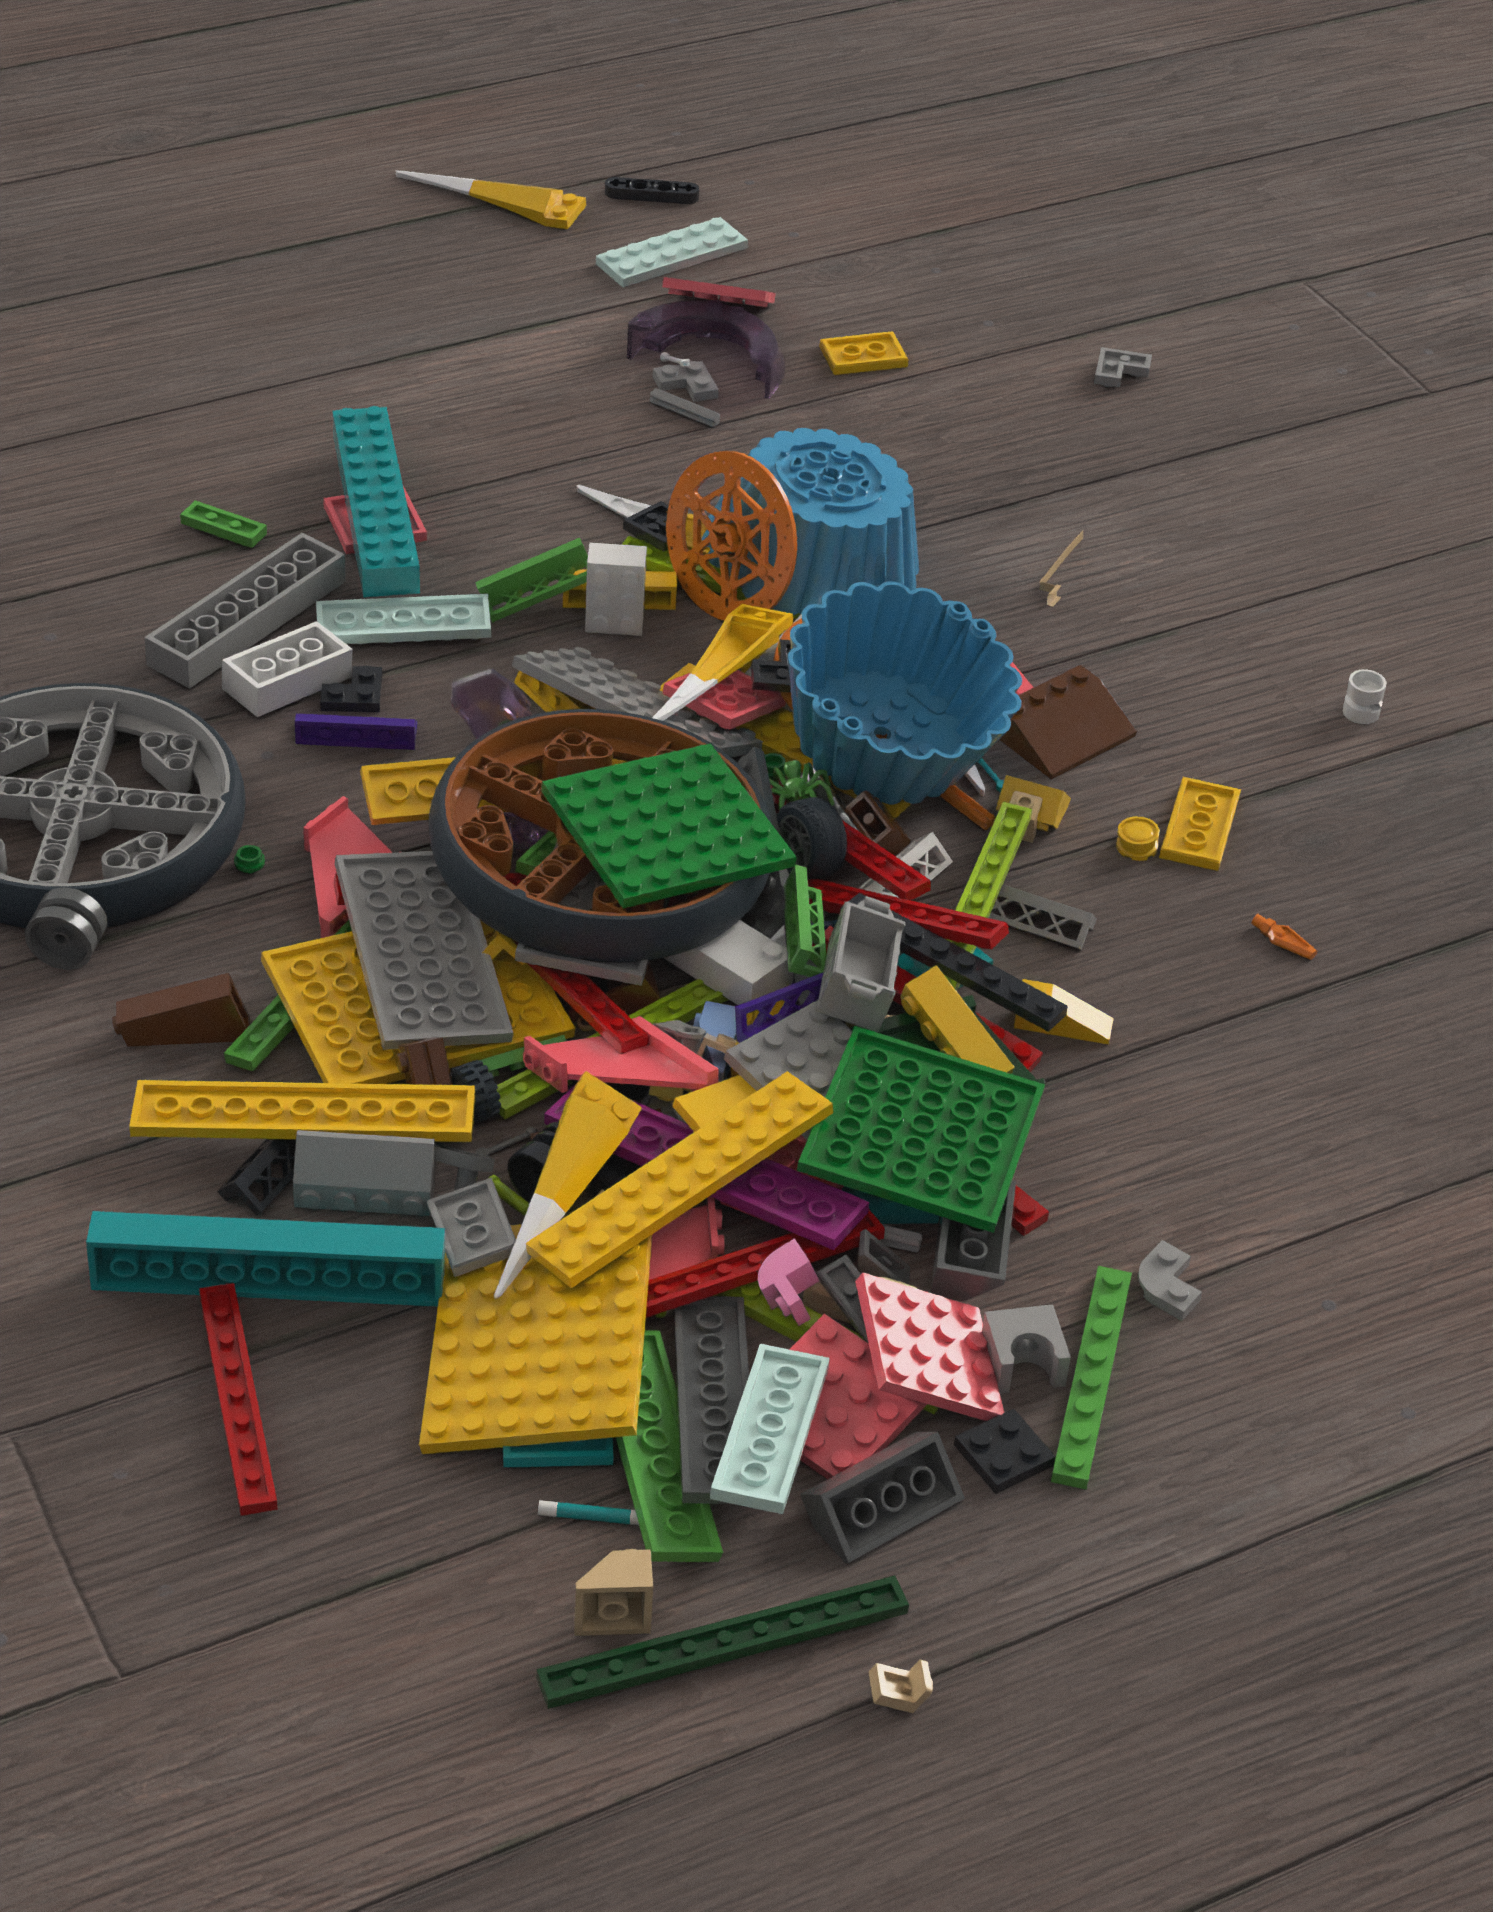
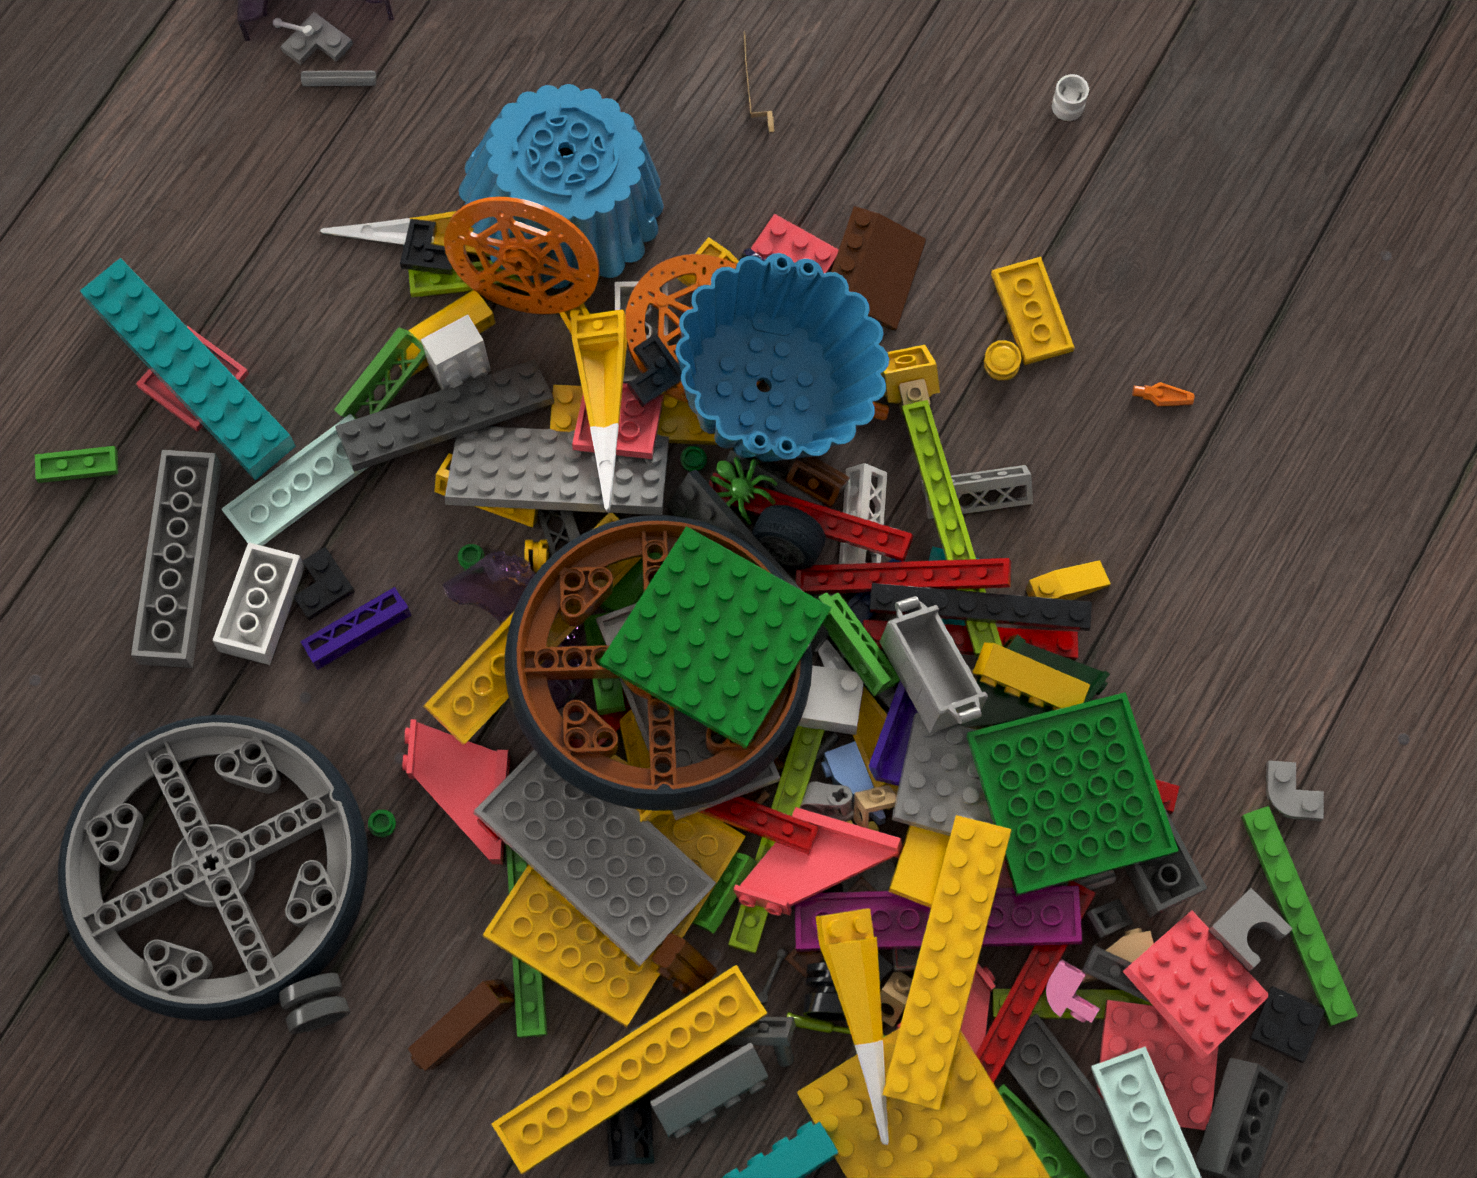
camera: 30 degrees left, 30 degrees up
(474, 1226) = (819, 1086): light grey tile -> none
(486, 1093) = (726, 953): black wheel -> none
(570, 629) = (444, 415): none -> dark grey plate

